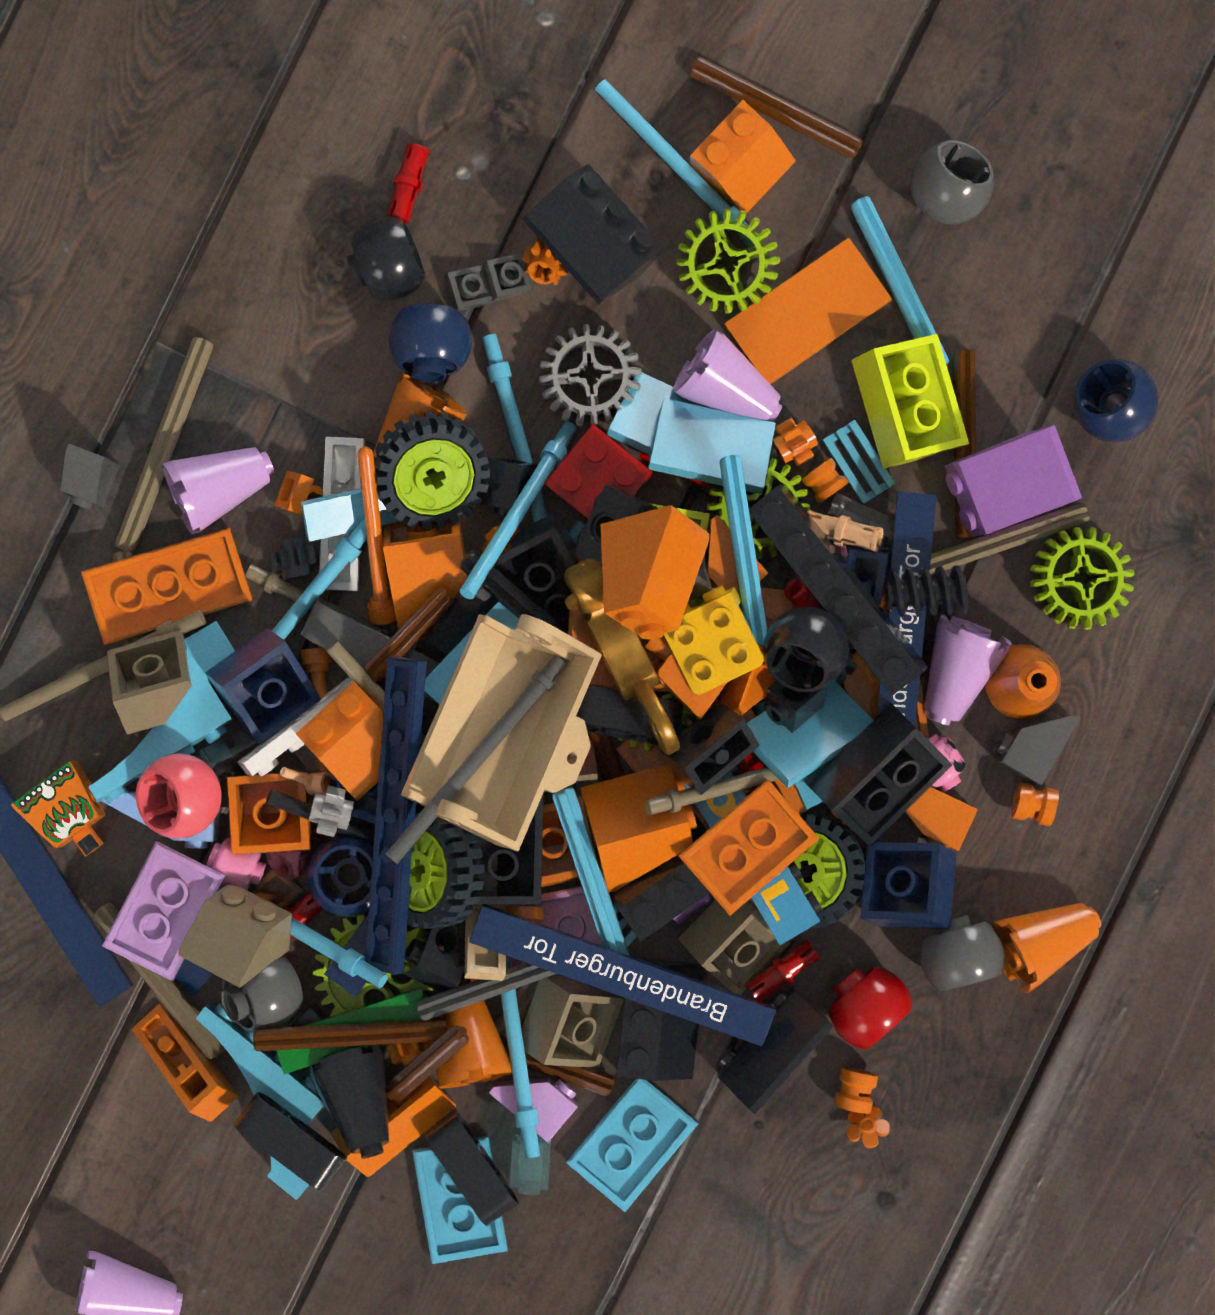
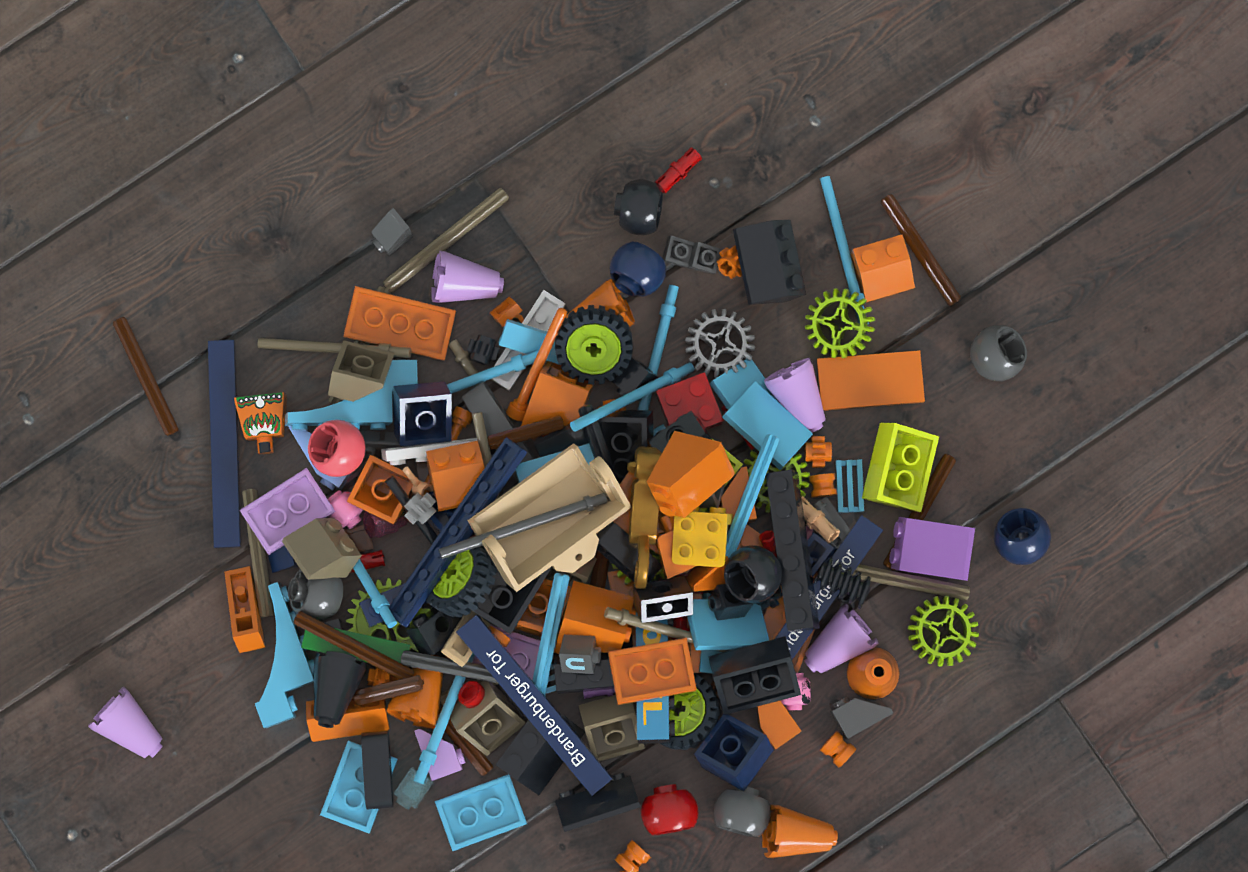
camera: 25 degrees right, 5 degrees down
(290, 1141) = (281, 689): black beam -> none
(319, 867) = (392, 538): dark blue wheel -> none
(534, 1006) = (471, 694): none -> red tile
(643, 879) = (579, 654): none -> dark grey brick
(782, 971) = (630, 761): red pin -> none
(893, 269) = (935, 385): medium azure axle -> none

